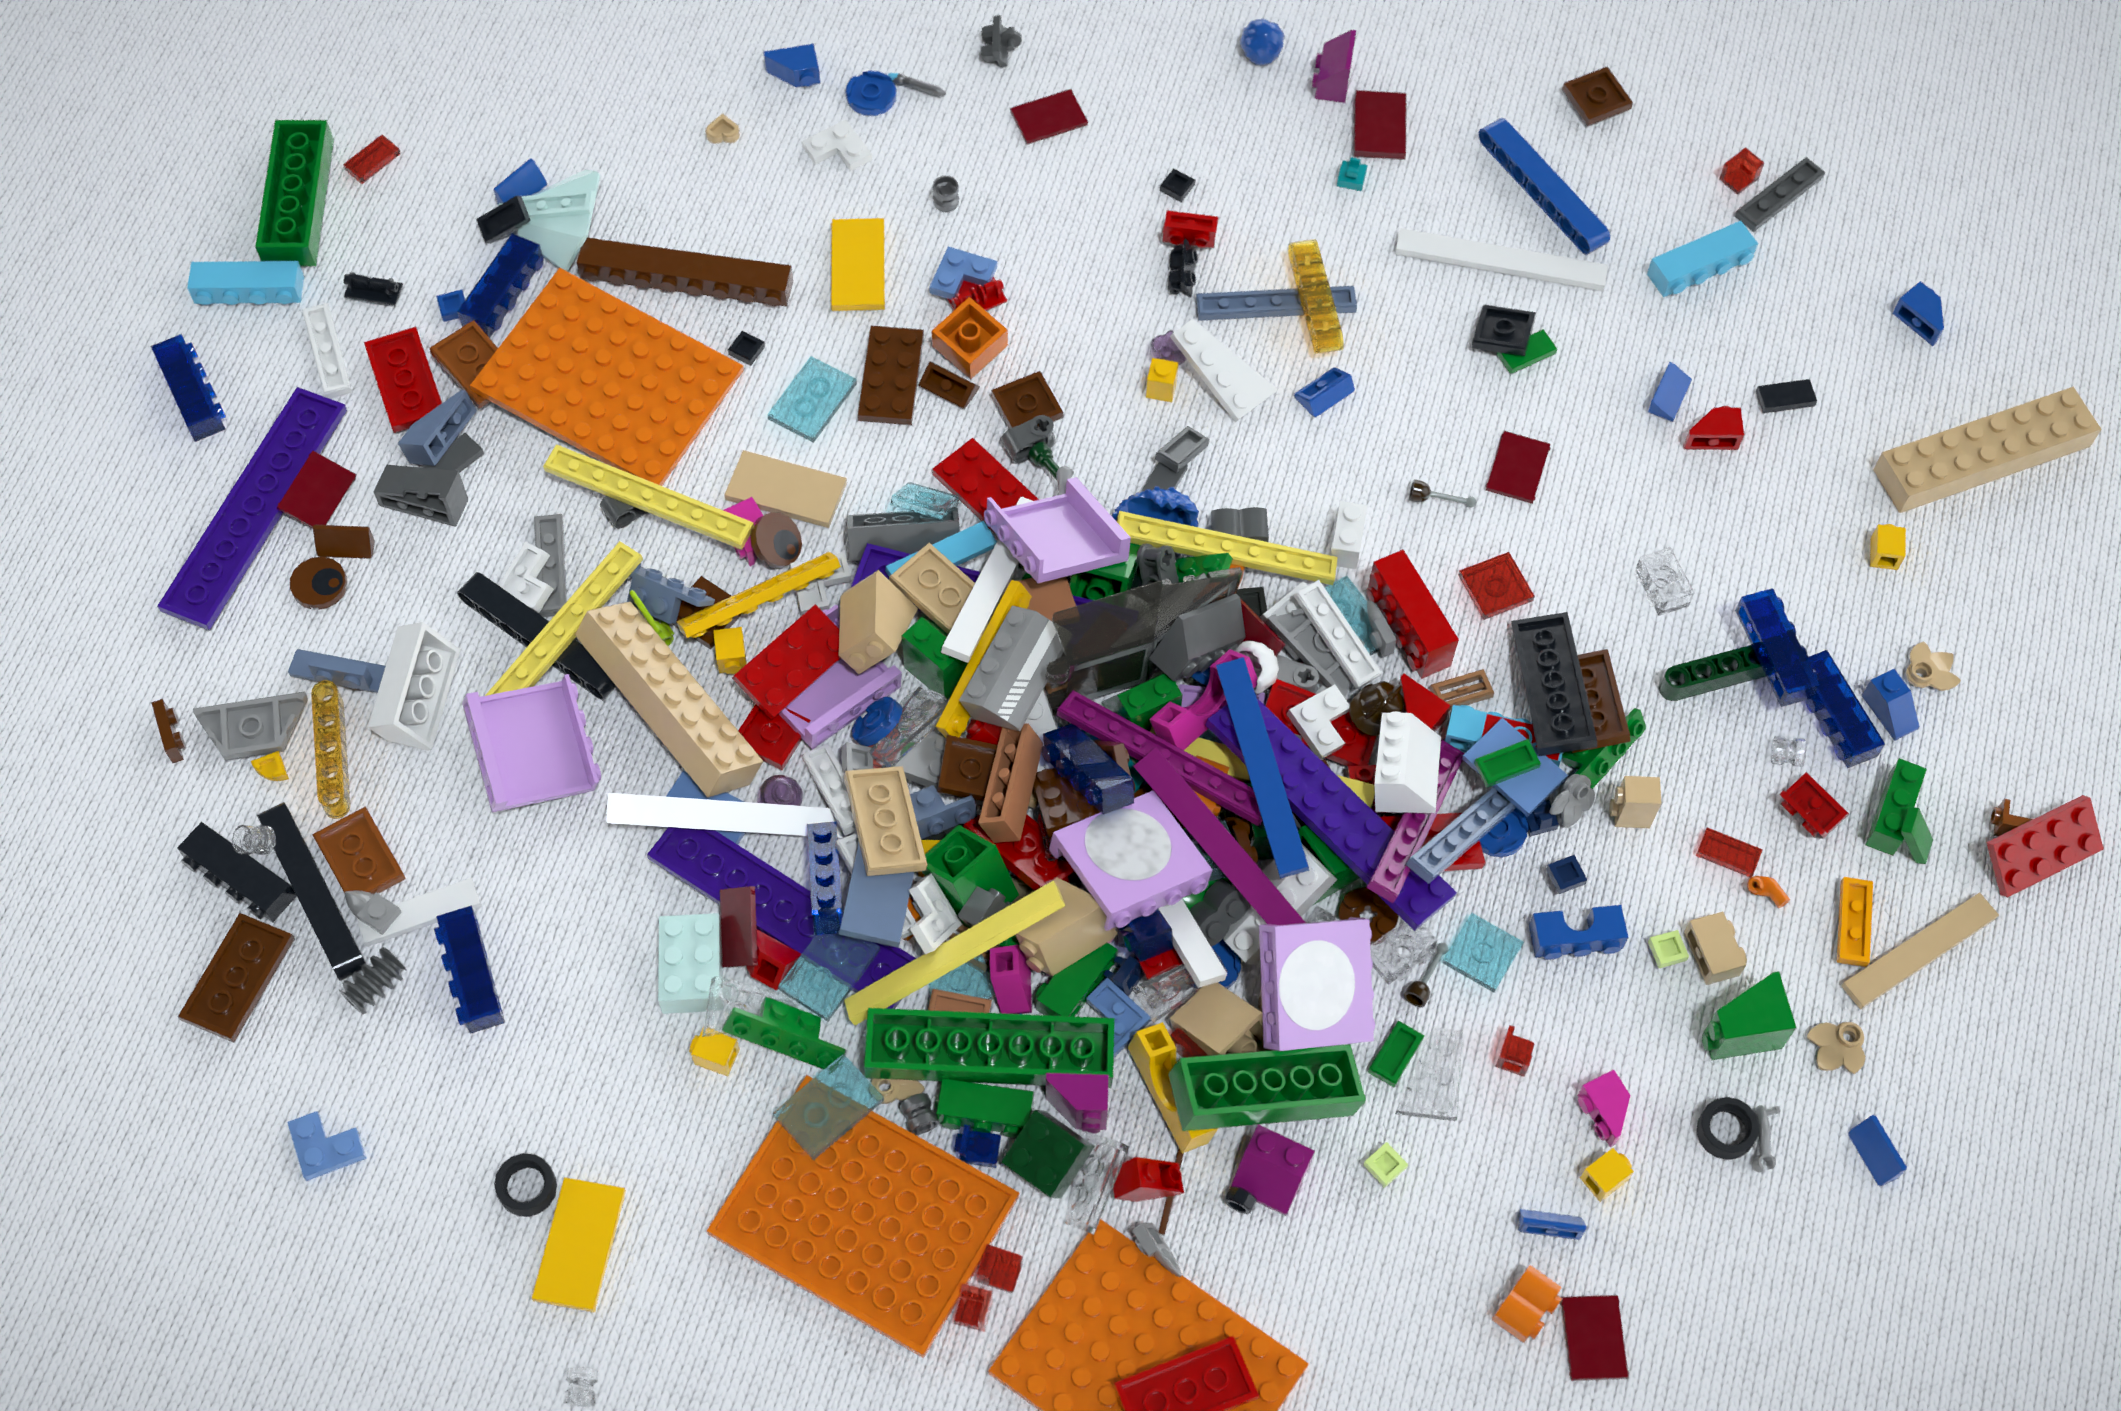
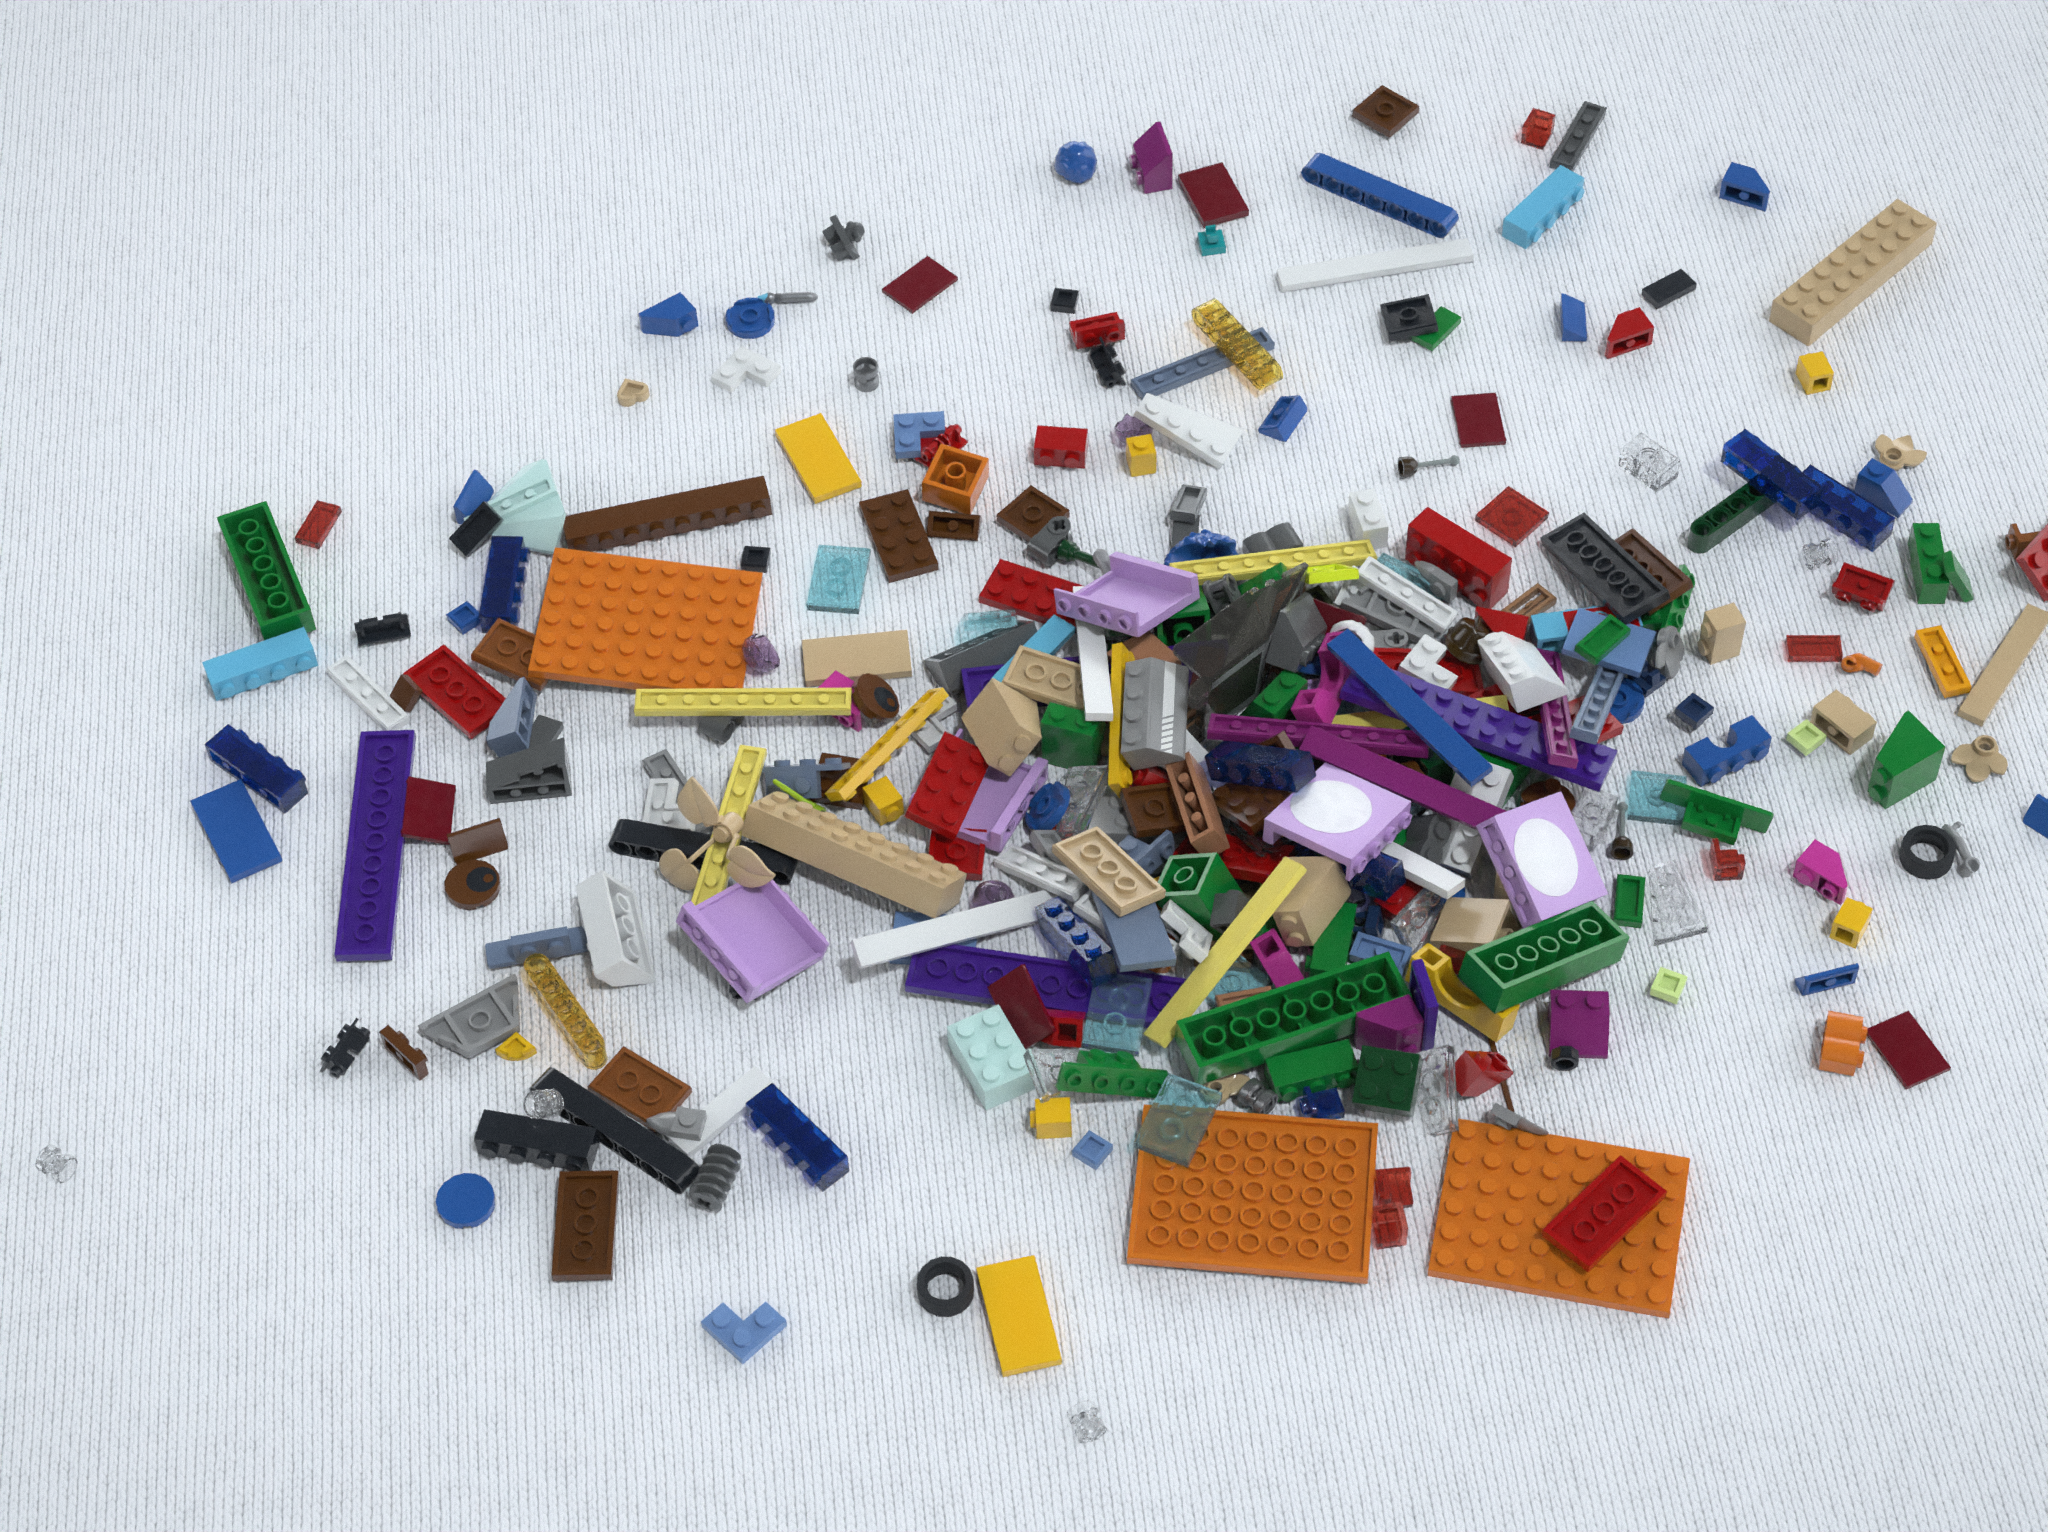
camera: 20 degrees left, 10 degrees down
(127, 696) = (350, 1039): none -> black hinge
(141, 443) = (236, 831): none -> blue tile
(146, 904) = (465, 1200): none -> blue tile
(357, 363) = (406, 693): none -> reddish brown tile
(554, 627) = (699, 808): none -> tan plant
(696, 450) = (760, 653): none -> clear purple hair
(738, 1099) = (1092, 1150): none -> medium blue tile
(1090, 341) = (1061, 446): none -> red brick
(1118, 1091) = (1425, 1001): none -> dark purple tile
(1267, 581) = (1331, 573): none -> neon yellow tile
(1526, 998) = (1714, 814): none -> green bracket

